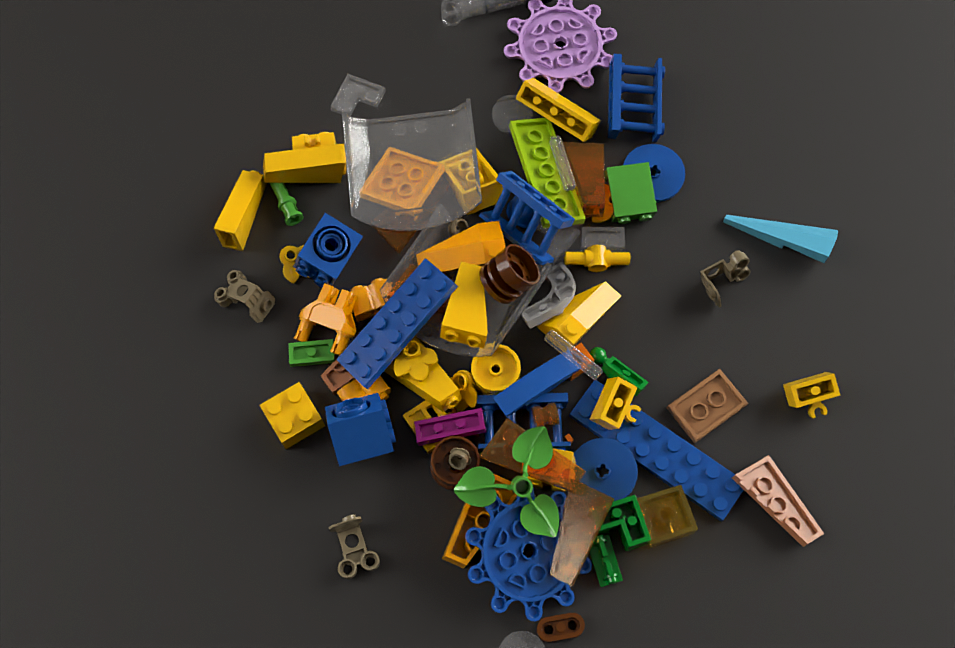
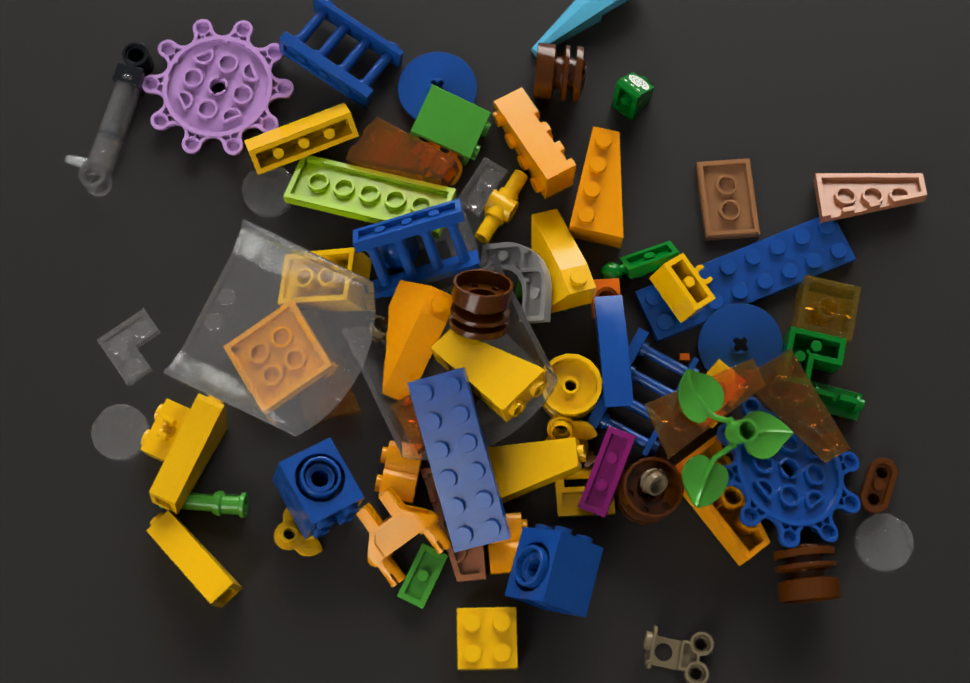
camera: 60 degrees left, 5 degrees up
(255, 299) = (324, 605): dark tan piece -> none
(298, 120) = (119, 432): none -> clear tile
(416, 363) = (517, 466): yellow plate -> none
(460, 605) = (806, 574): none -> reddish brown wheel
(545, 415) = (653, 365): clear orange wheel -> none
(562, 163) = (374, 172): clear axle -> none
(573, 354) = (606, 295): clear axle -> none
(649, 314) = (598, 202): none -> light orange wedge
(655, 252) = (533, 143): none -> light orange wedge
(716, 237) = (559, 72): none -> reddish brown wheel
(734, 270) = (602, 81): dark tan piece -> none
(738, 295) = (632, 94): none -> green slope
(812, 391) = (776, 90): yellow brick -> none

